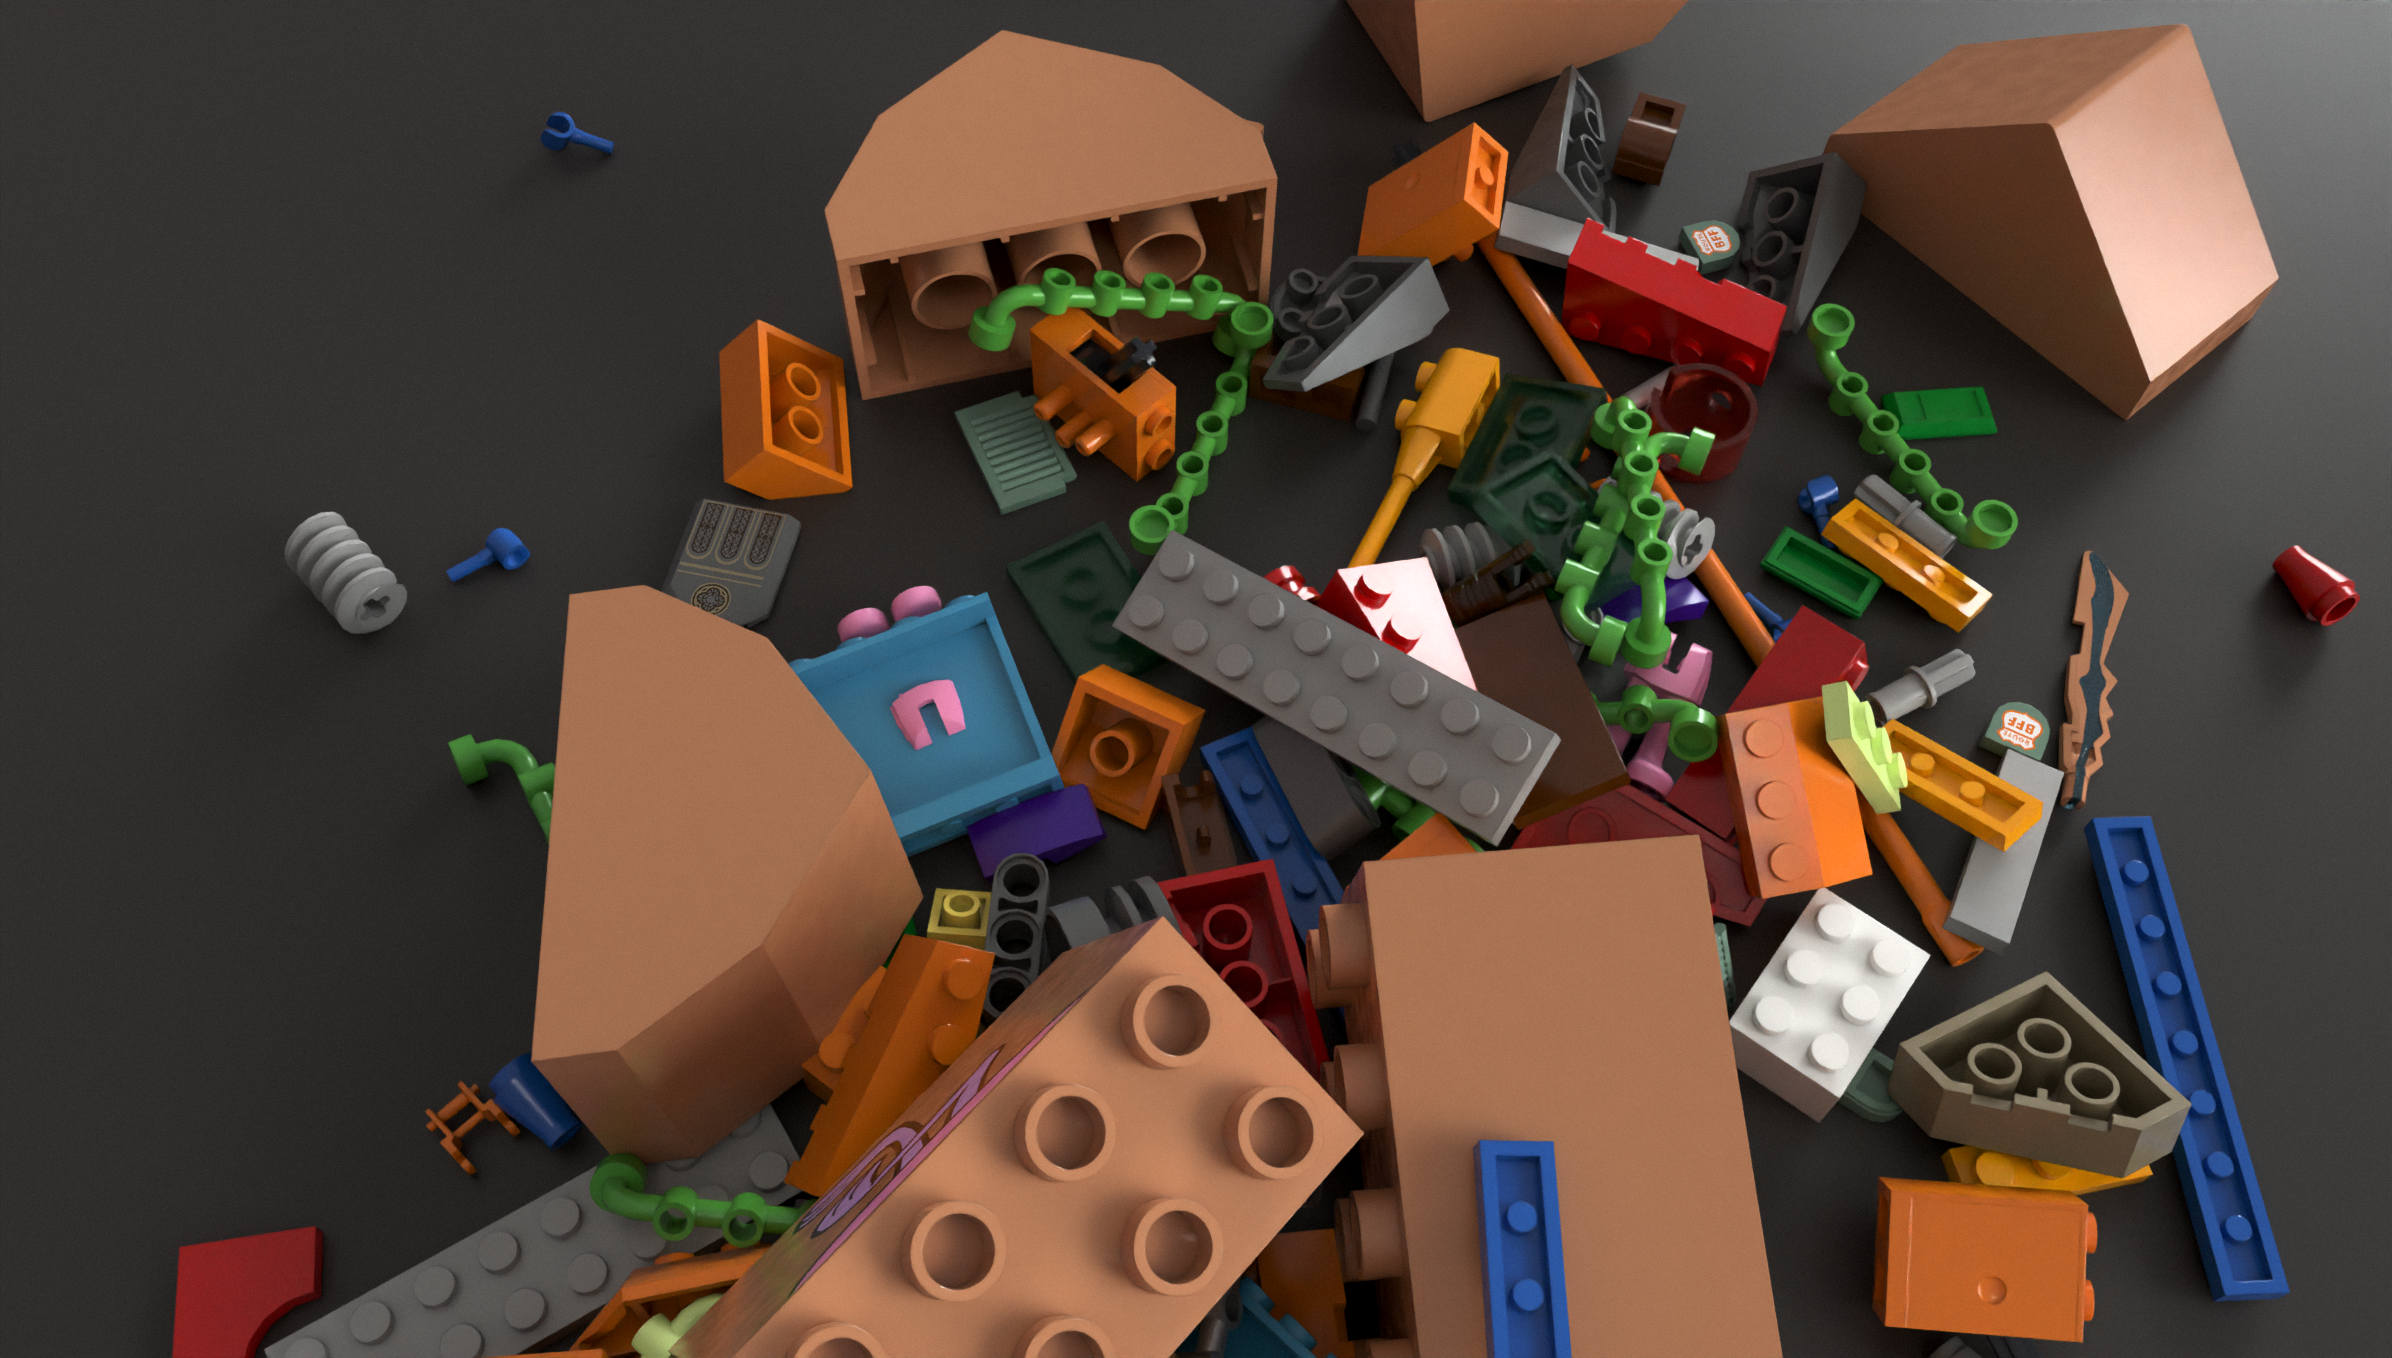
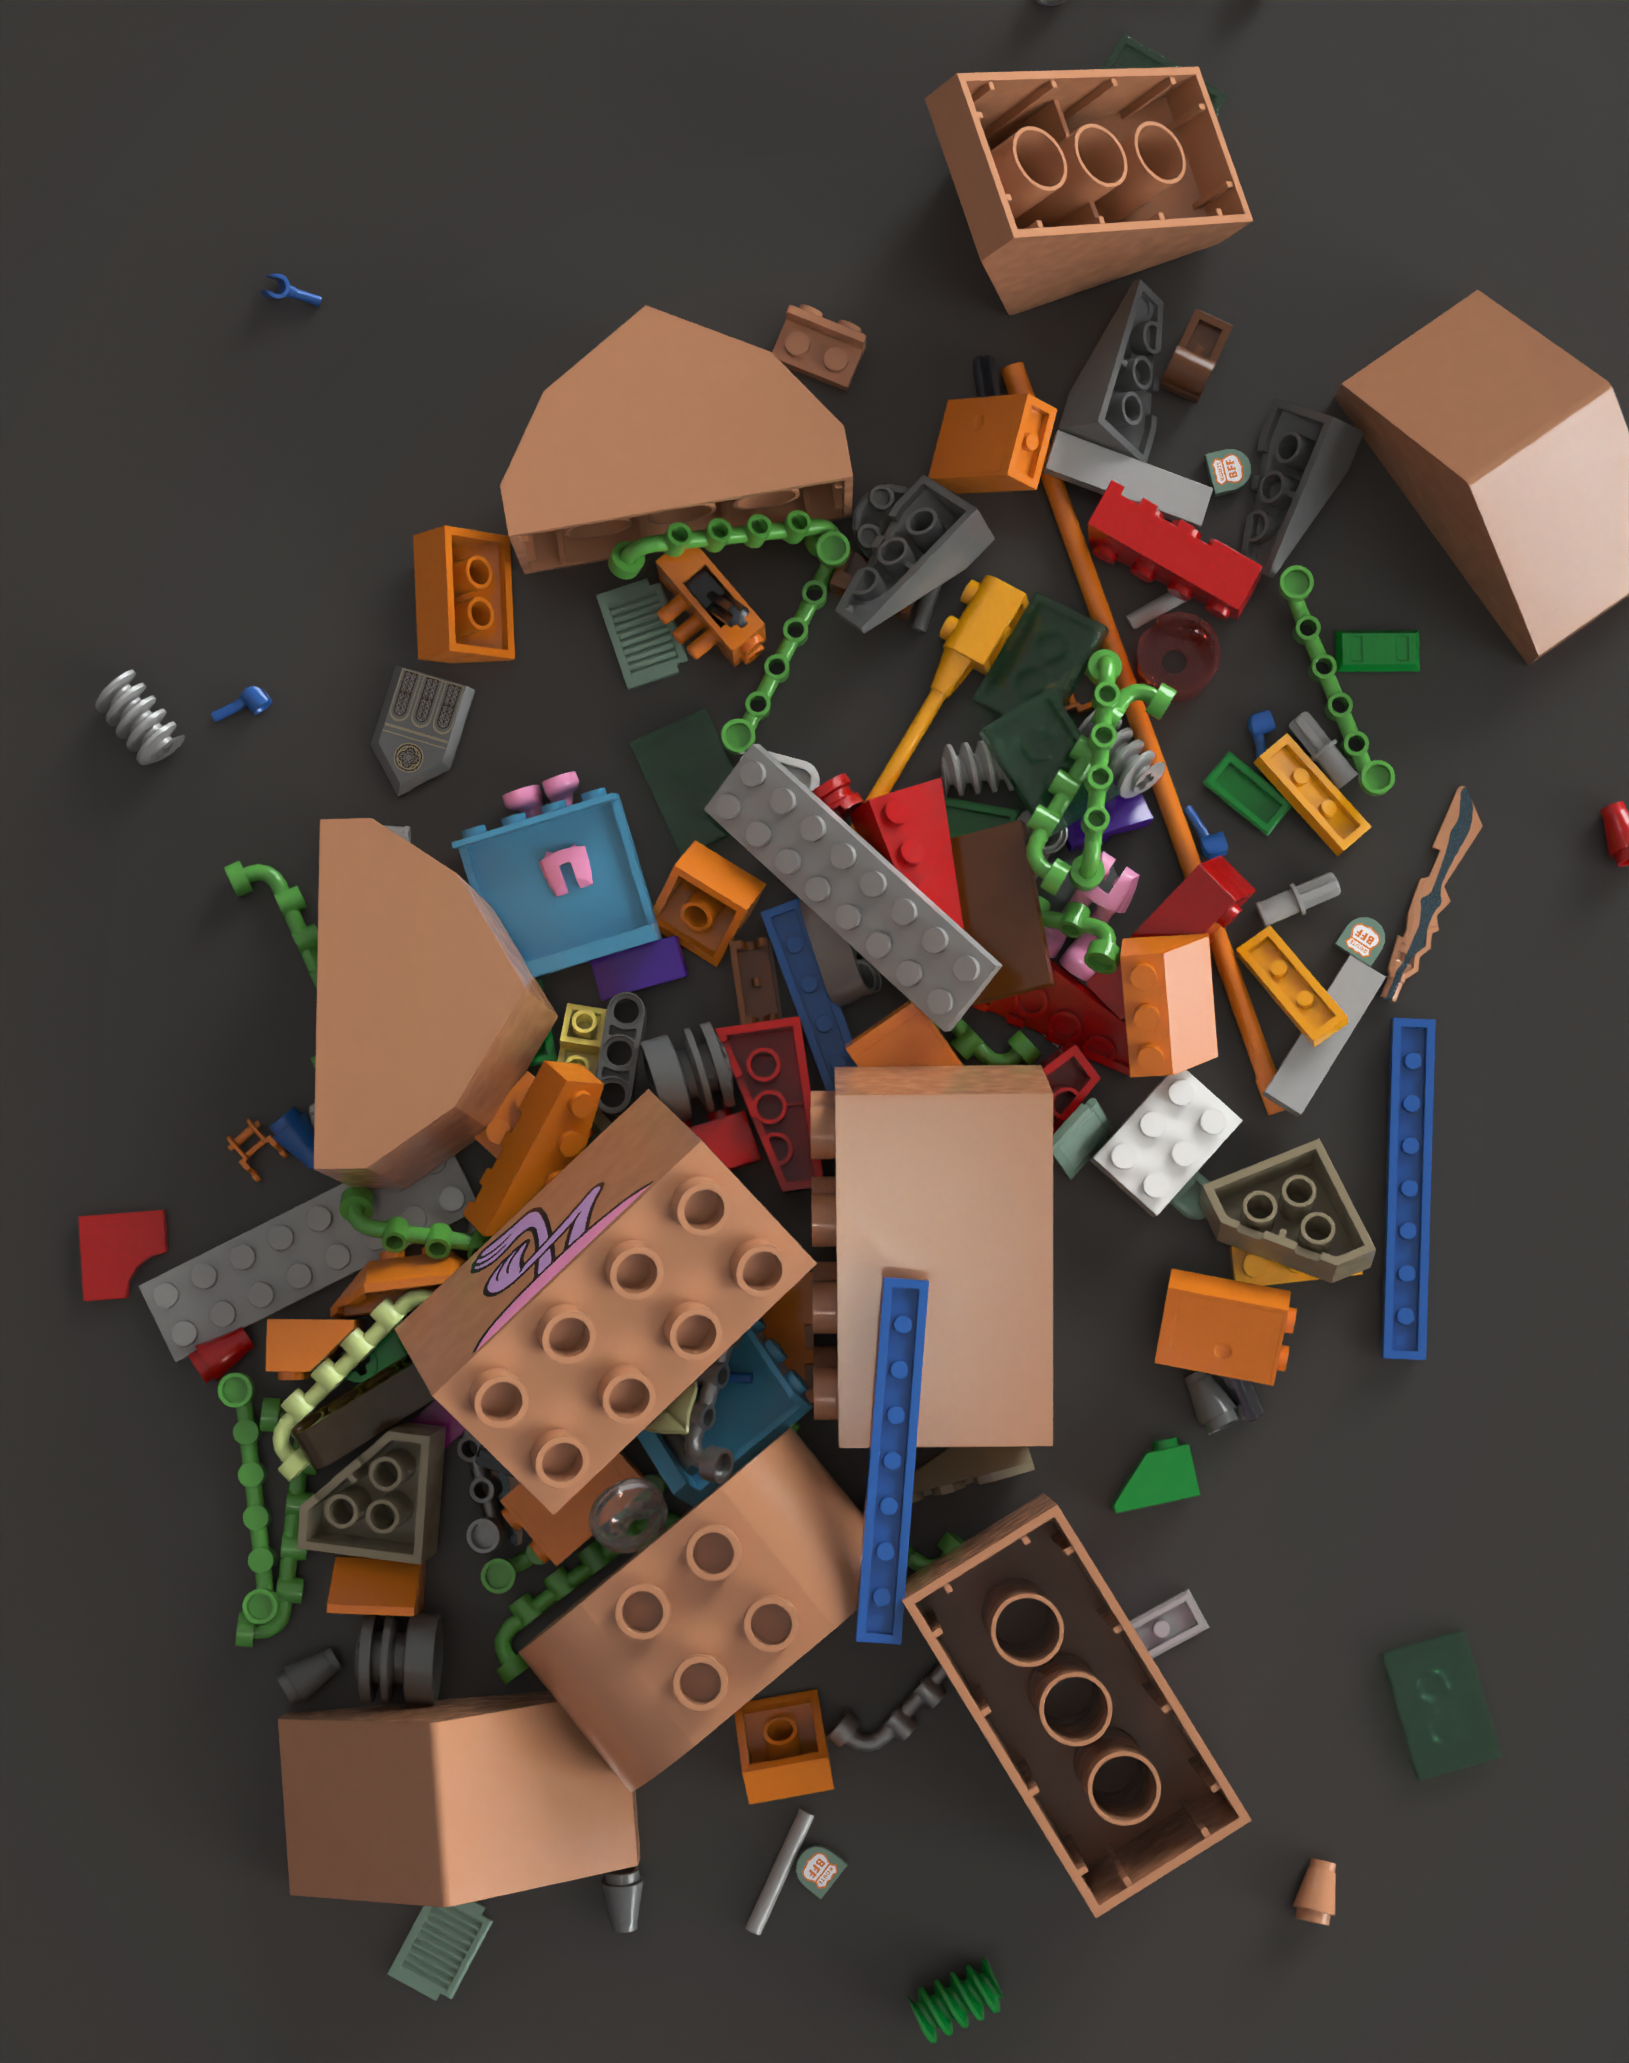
camera: 10 degrees right, 25 degrees up
(1491, 588) = (986, 809): dark brown hinge -> none
(1863, 747) = (1222, 973): yellowish green plate -> none

